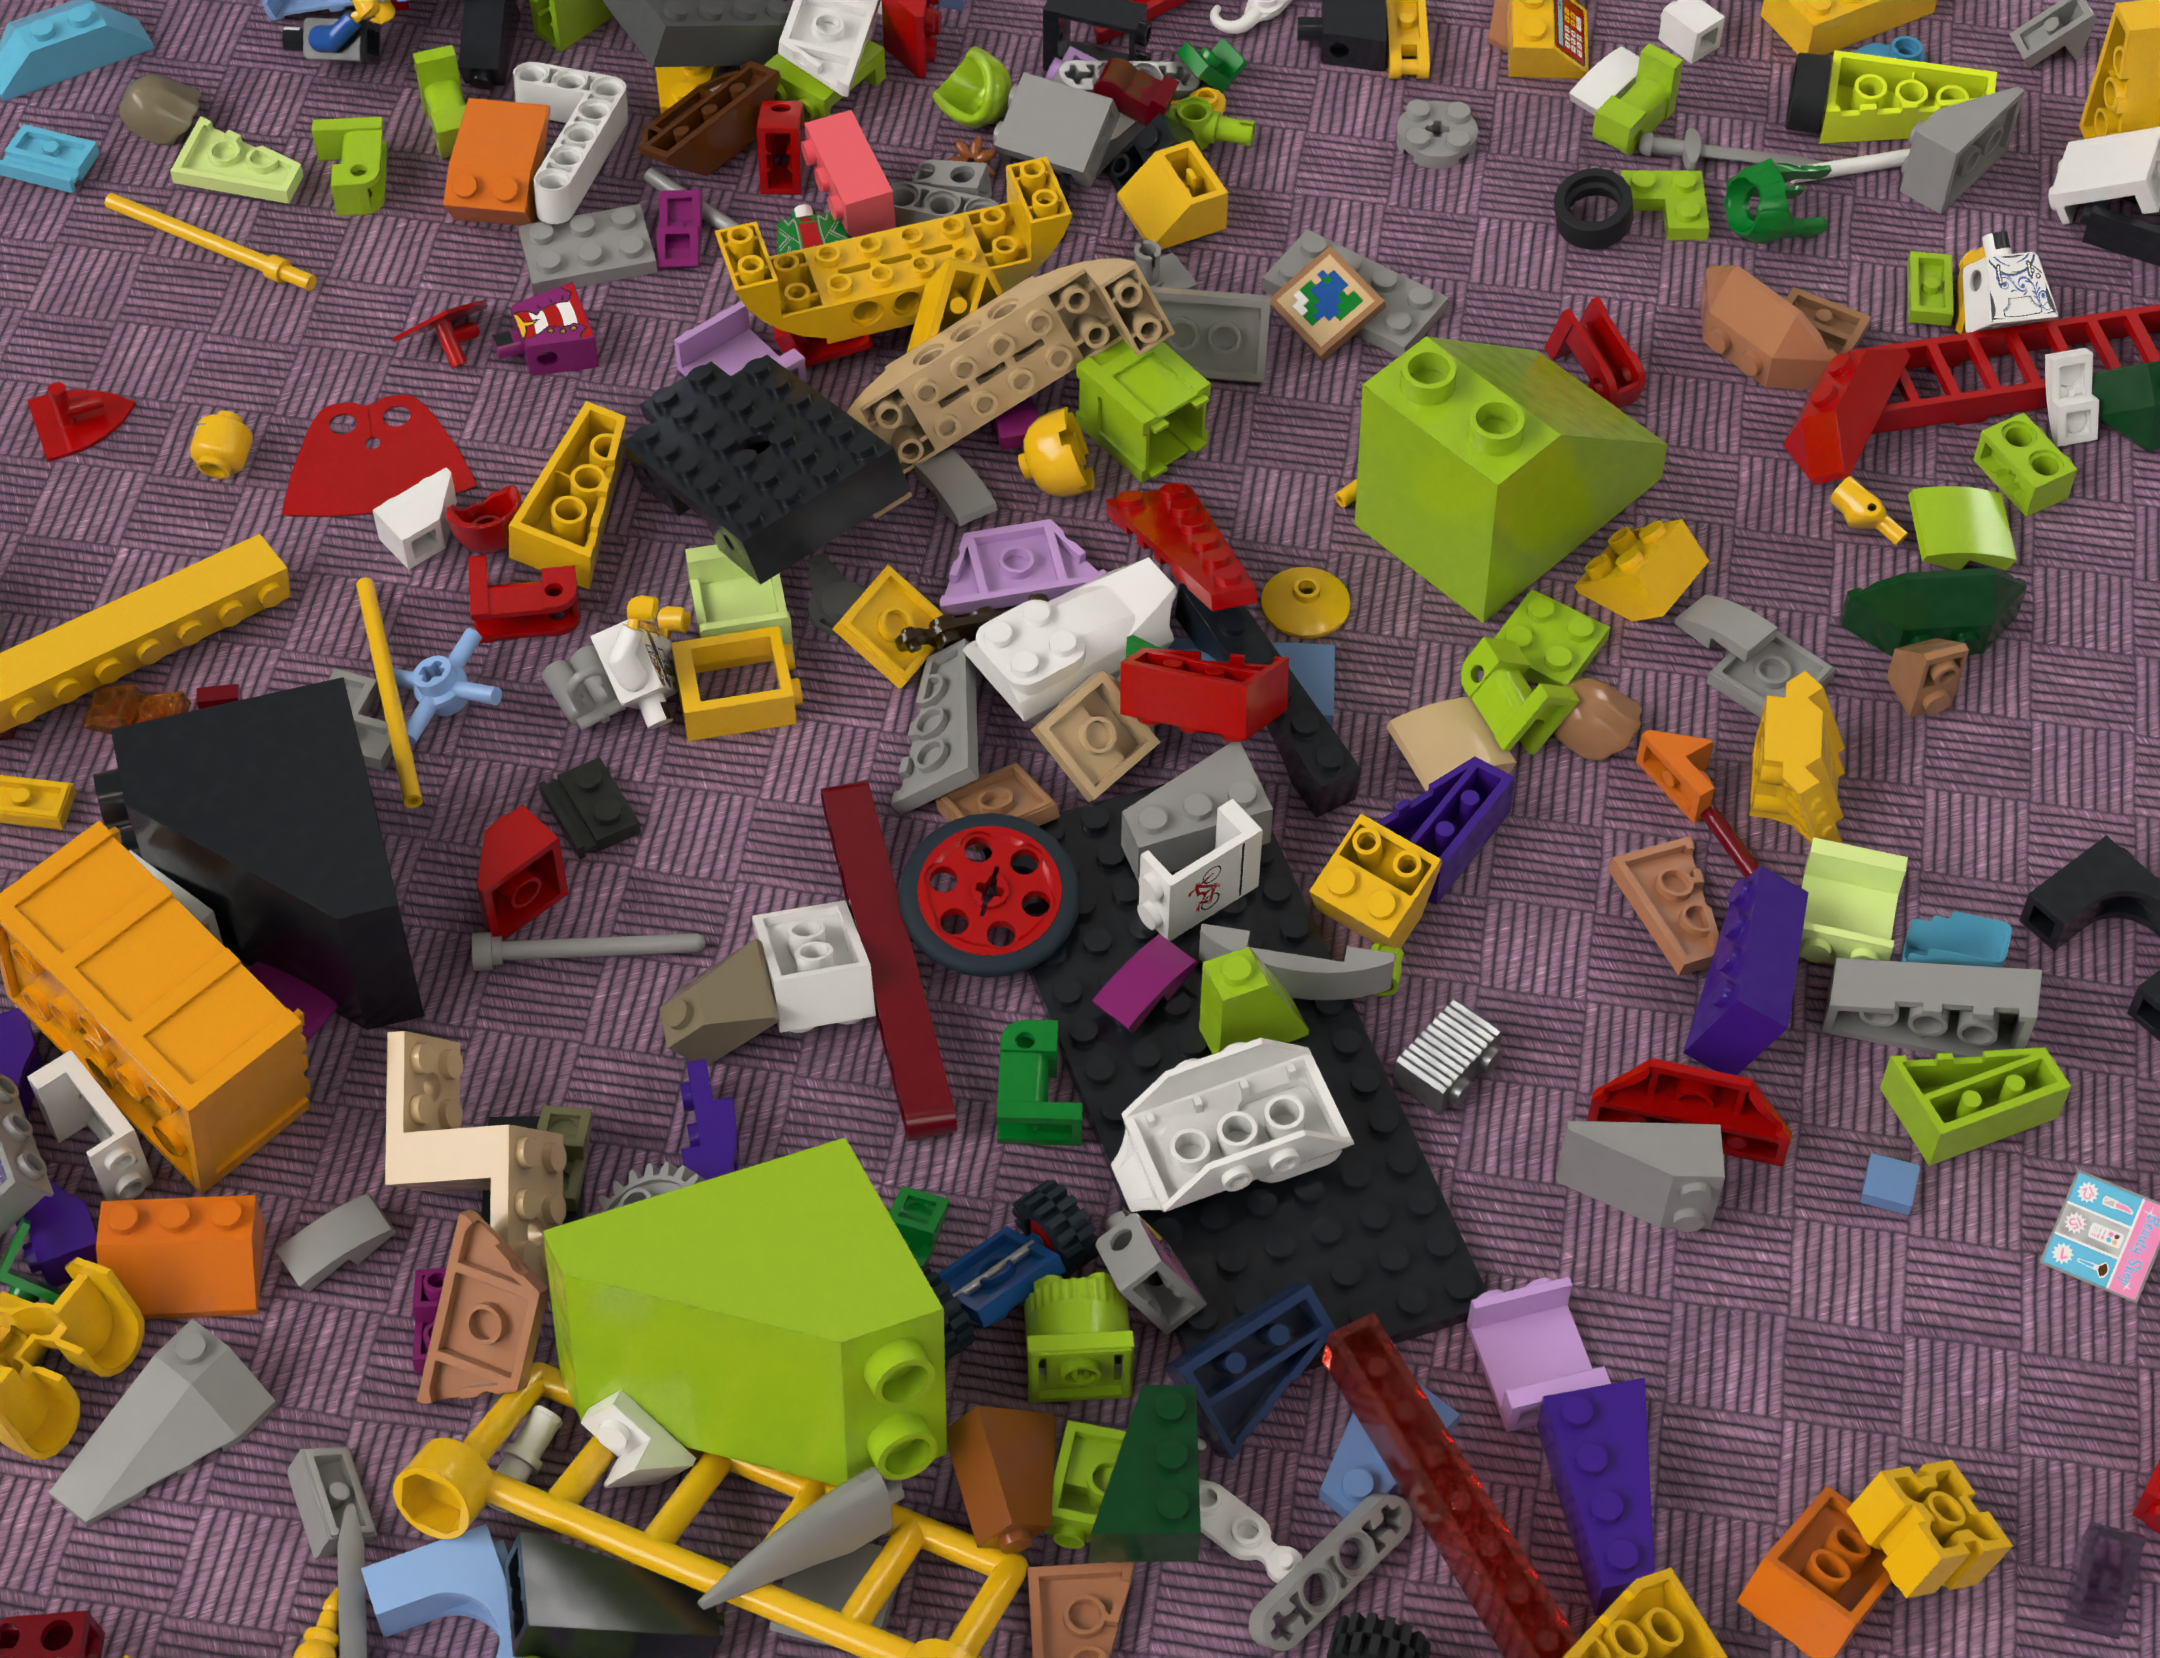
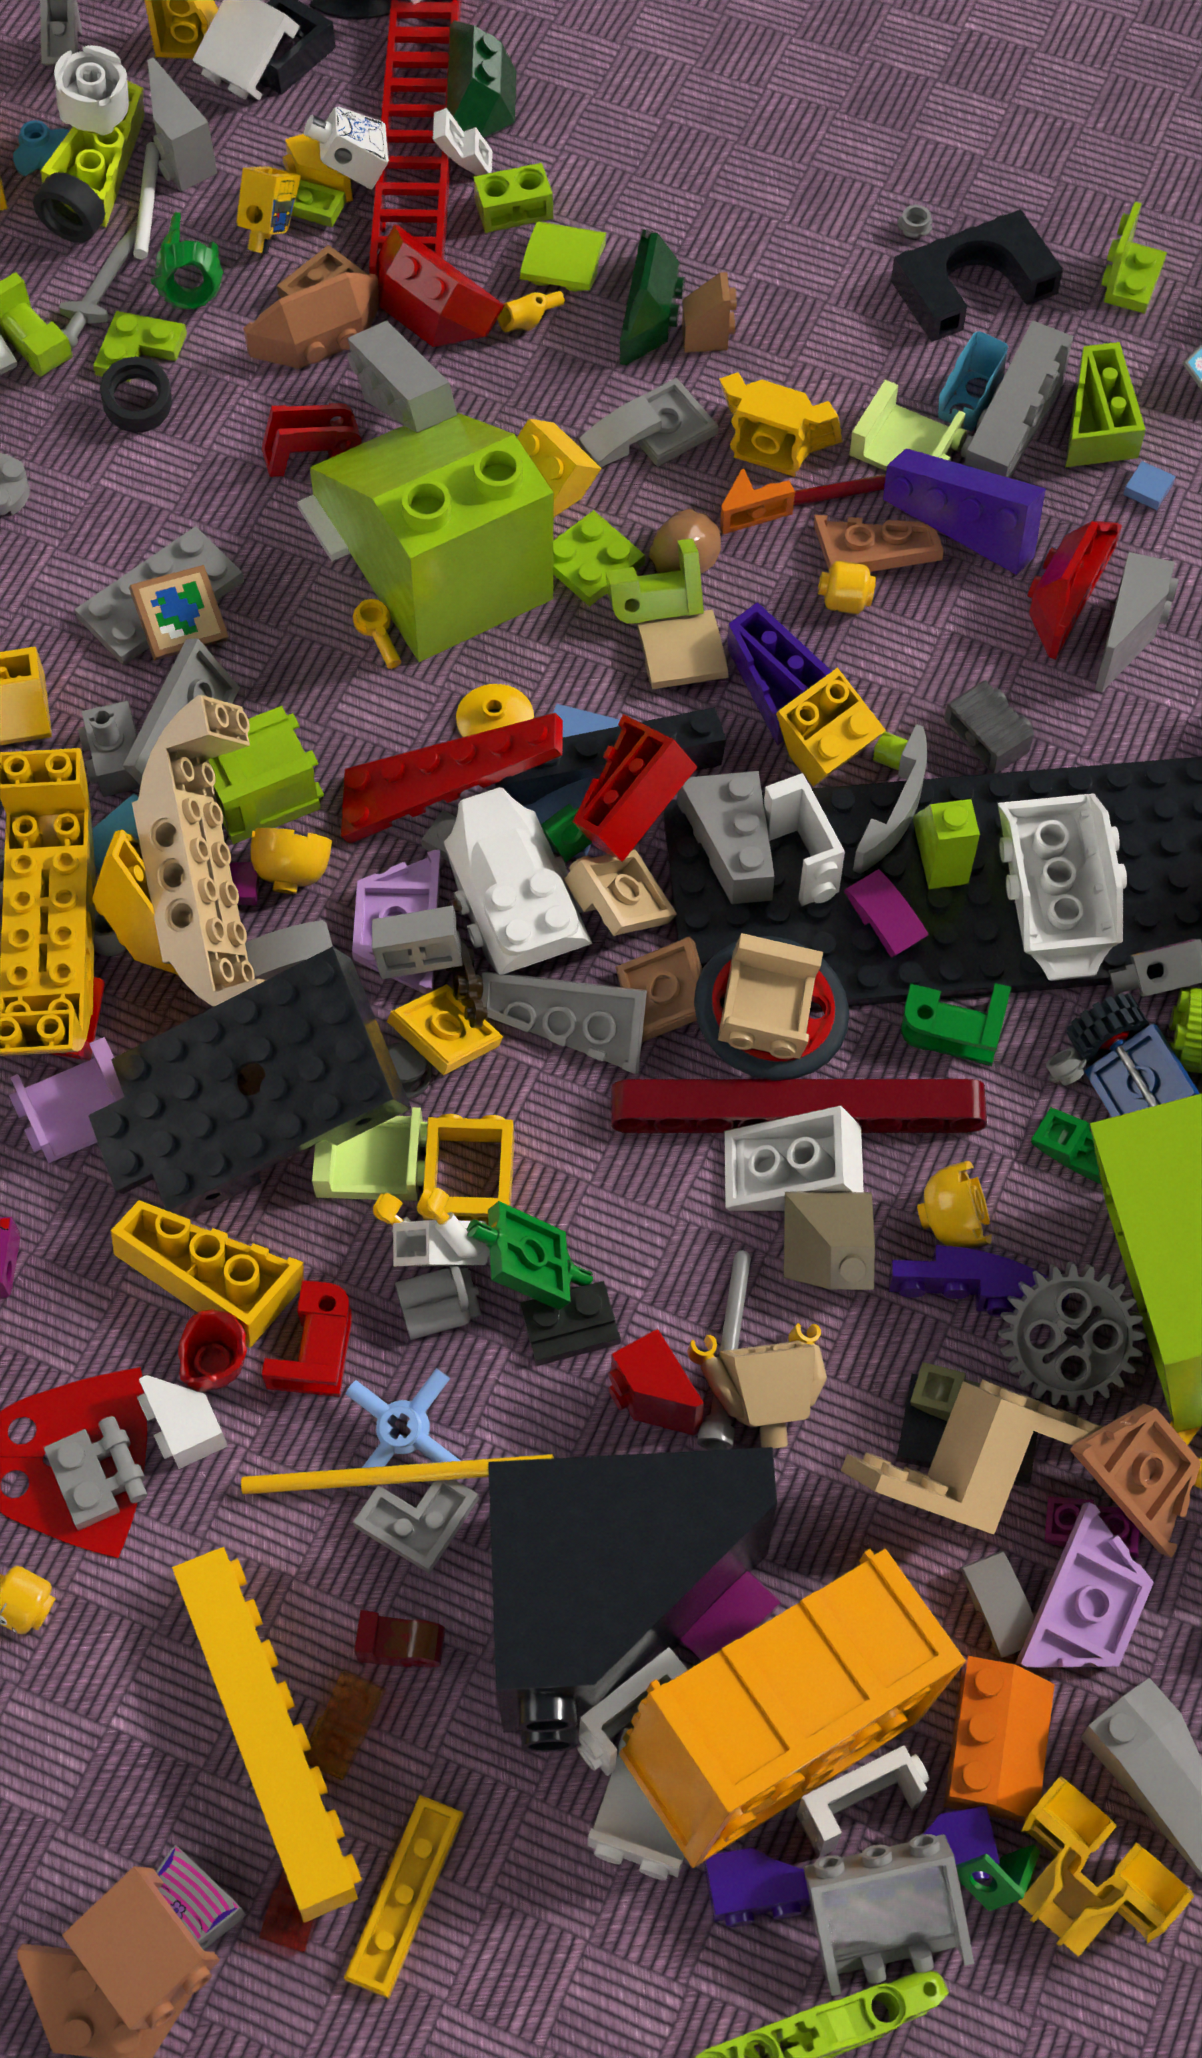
camera: 75 degrees left, 10 degrees up
(345, 1315) = (1088, 1602): none -> lavender wing
(357, 472) = (81, 1476): none -> light grey plate
(541, 974) = (766, 1382): none -> tan torso
(636, 734) = (529, 1255): none -> green plate
(790, 1115) = (955, 1207): none -> yellow cylinder
(976, 568) = (416, 942): none -> light grey hinge
(981, 874) = (769, 996): none -> tan panel
(1000, 1205) = (1066, 1067): none -> light grey plate
(1593, 881) = (847, 587): none -> yellow head
(1678, 391) = (399, 378): none -> light grey wedge
(1891, 241) = (266, 204): none -> yellow torso
(1946, 49) = (91, 89): none -> white brick

